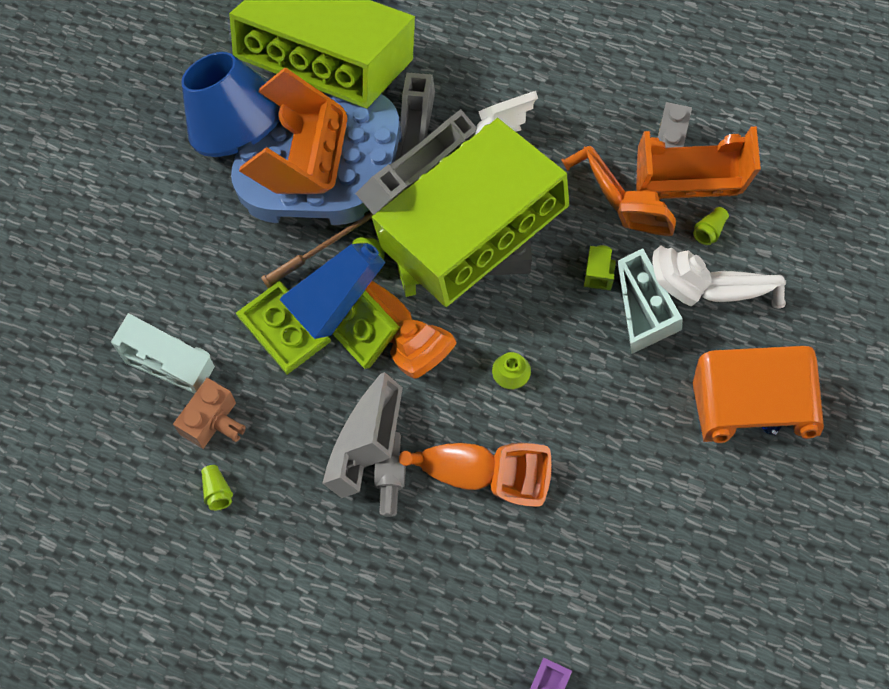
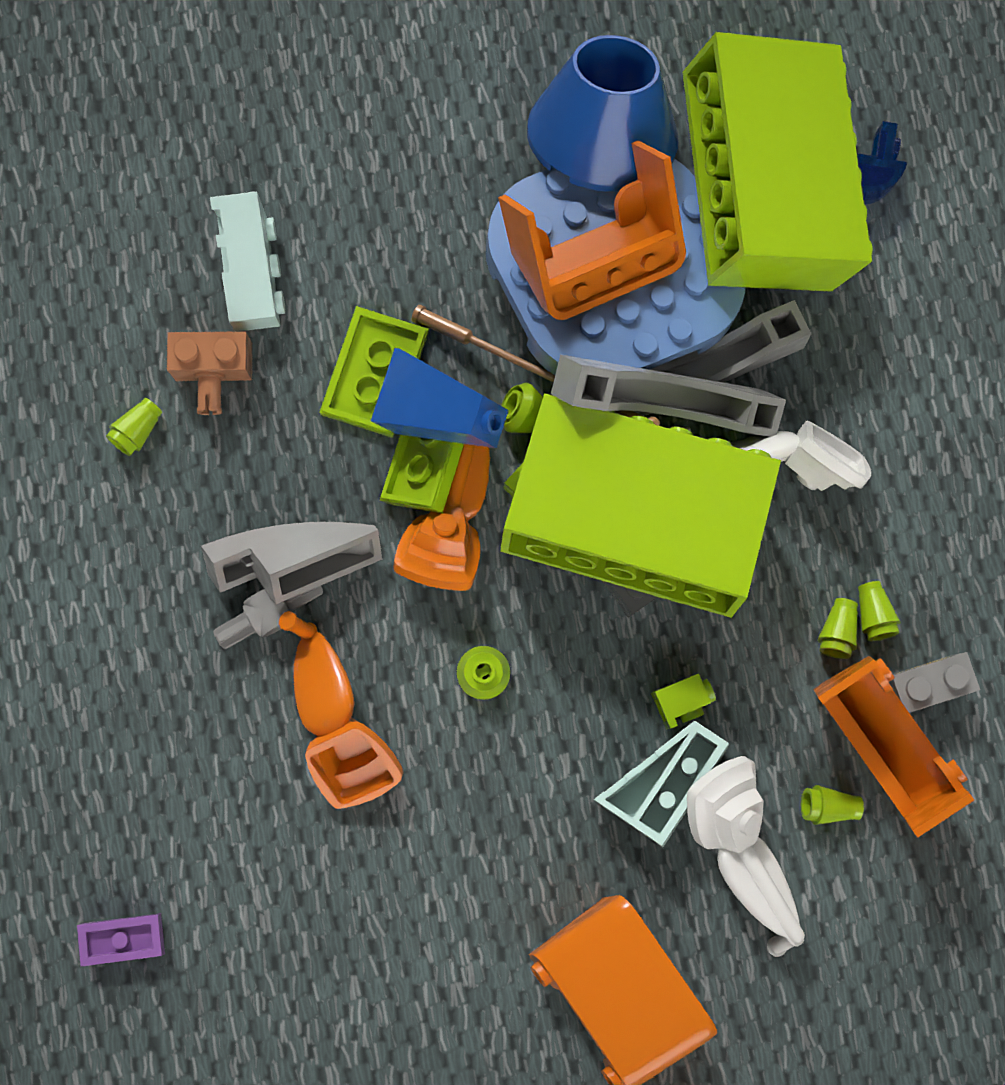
camera: 50 degrees right, 15 degrees up
(615, 140) = (876, 612): none -> lime cone
(617, 164) = (840, 630): none -> lime cone
(635, 209) = (786, 693): orange piece -> none

